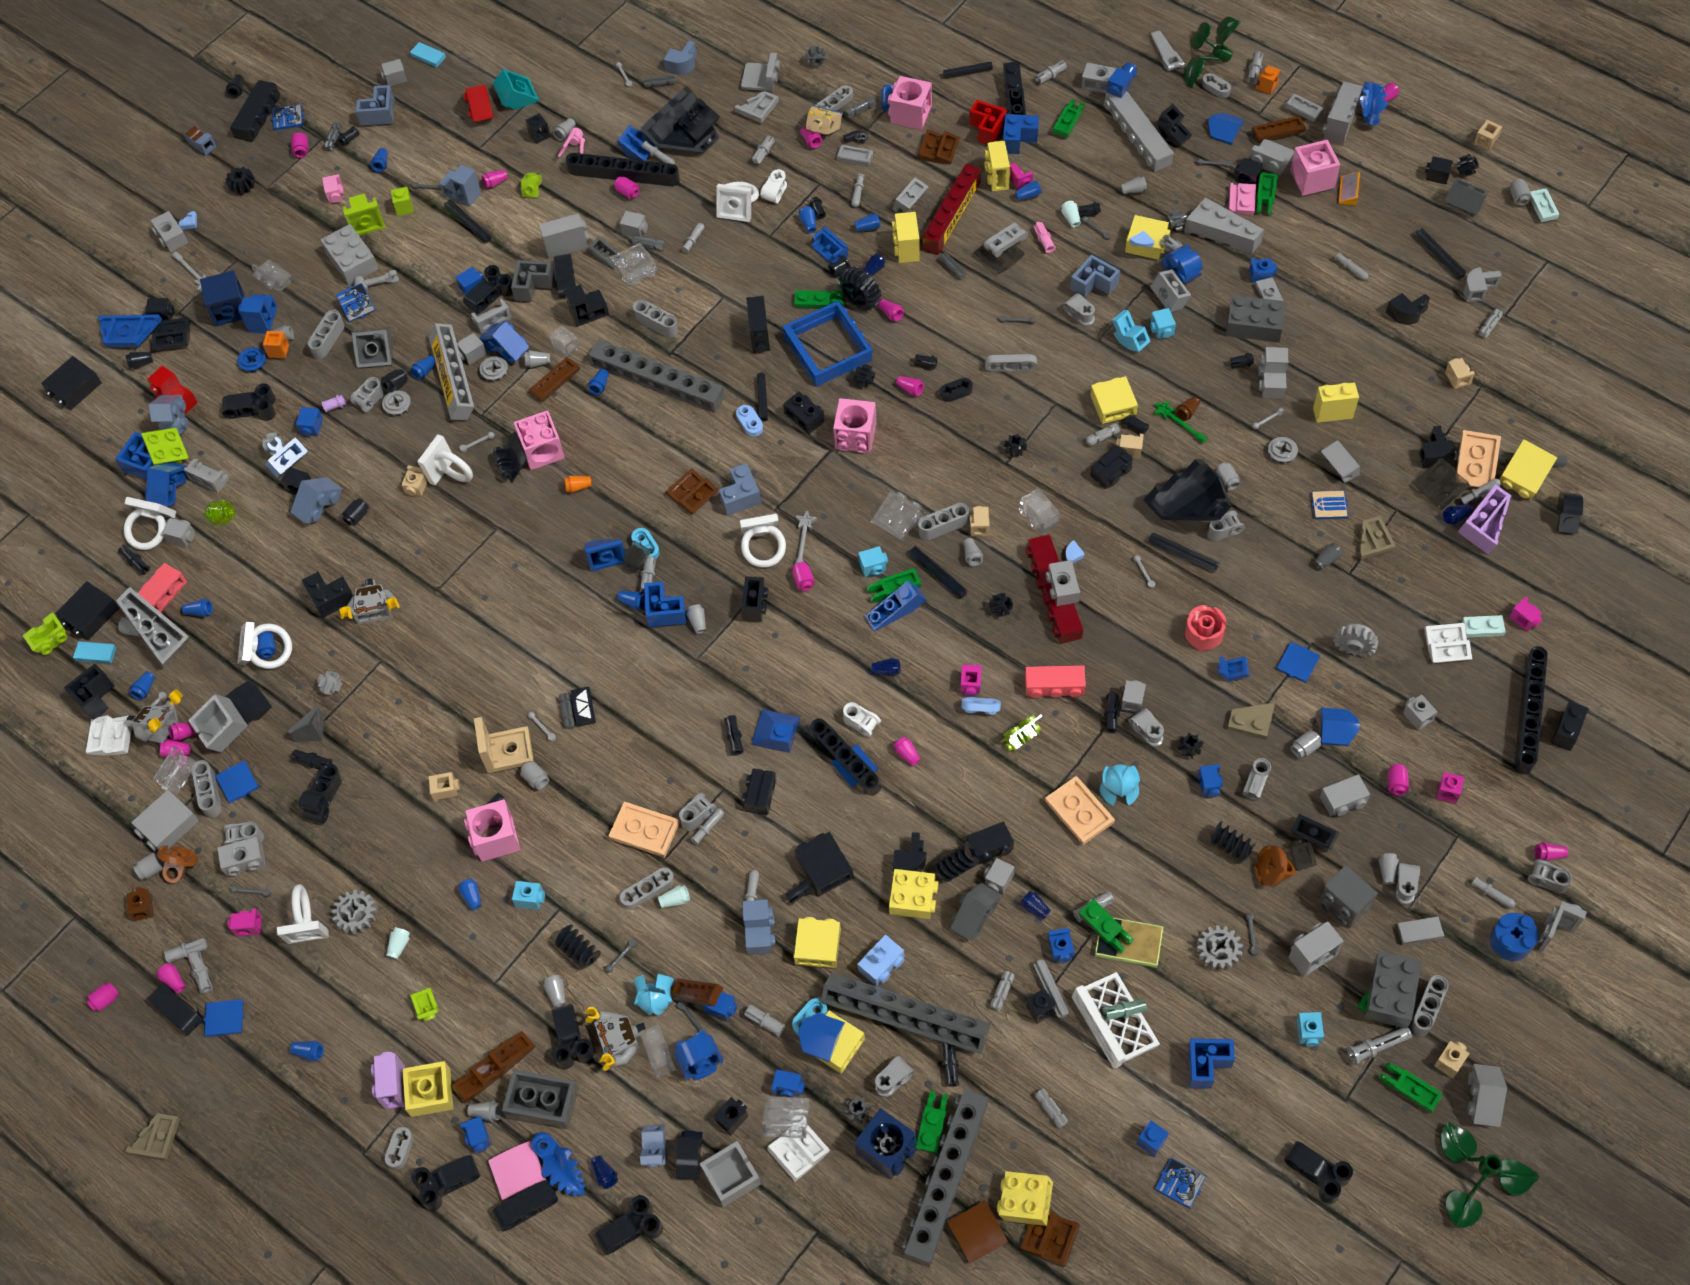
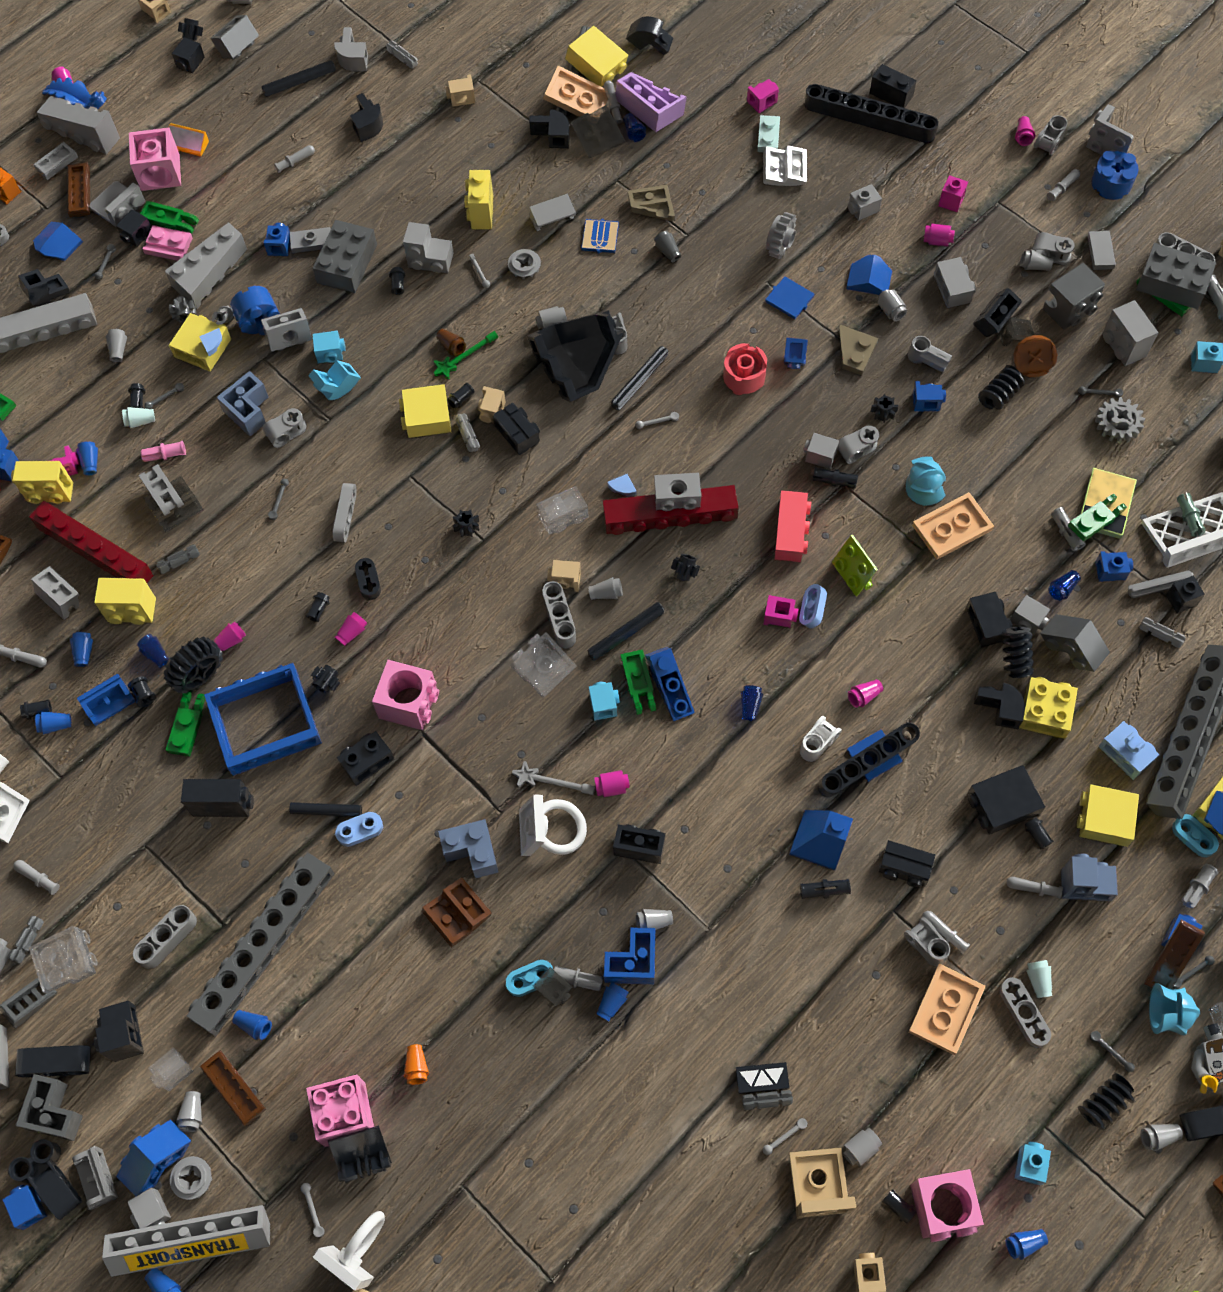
camera: 85 degrees left, 5 degrees up
(604, 553) = (536, 1034): blue slope -> none

